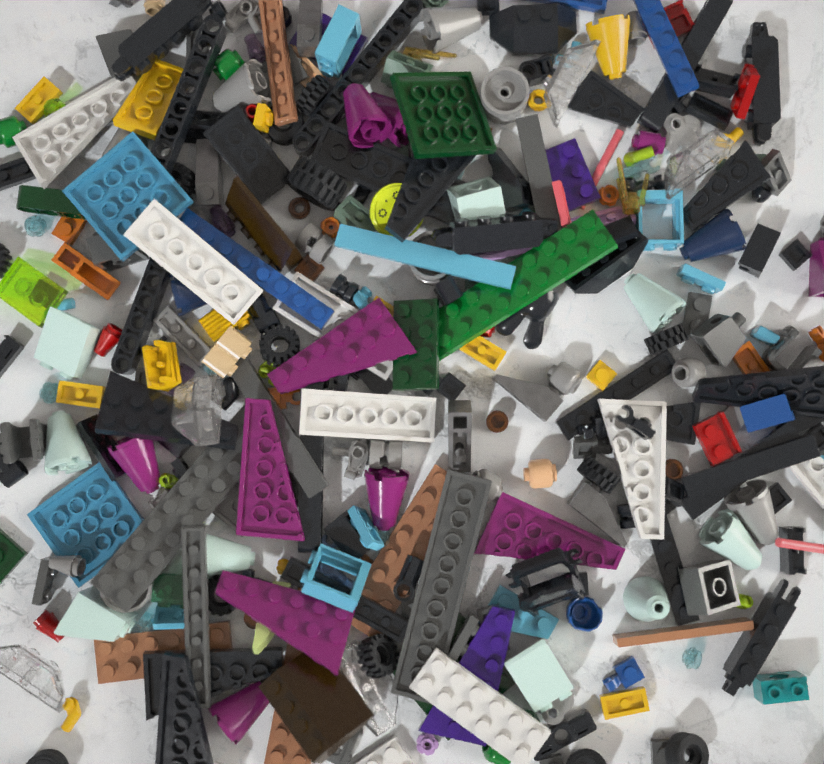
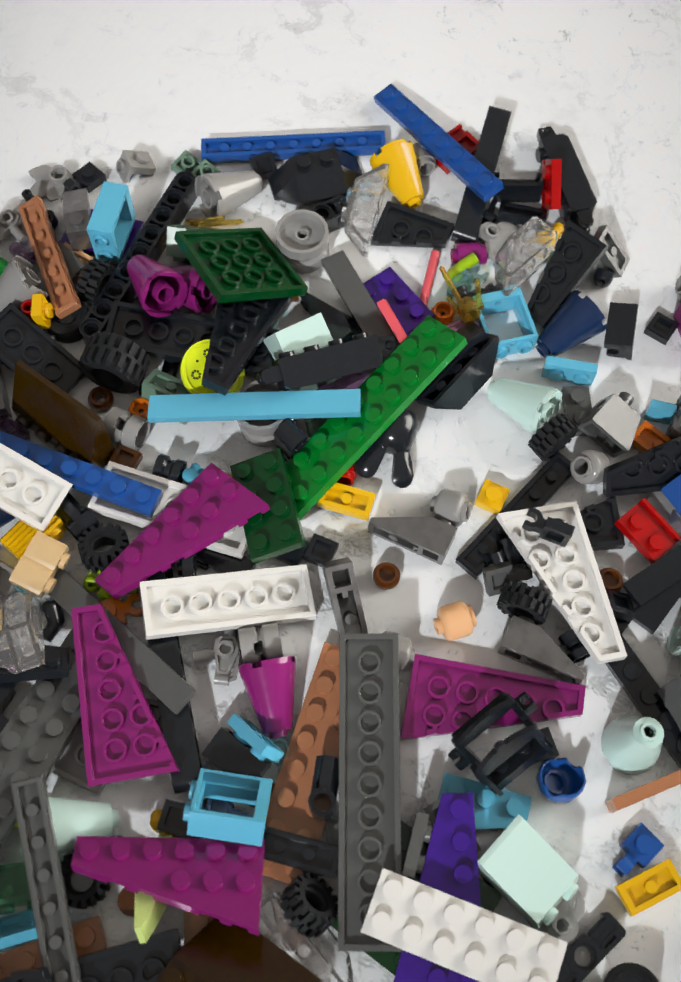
camera: 20 degrees left, 20 degrees down
(538, 93) = (340, 236): yellow plate -> none

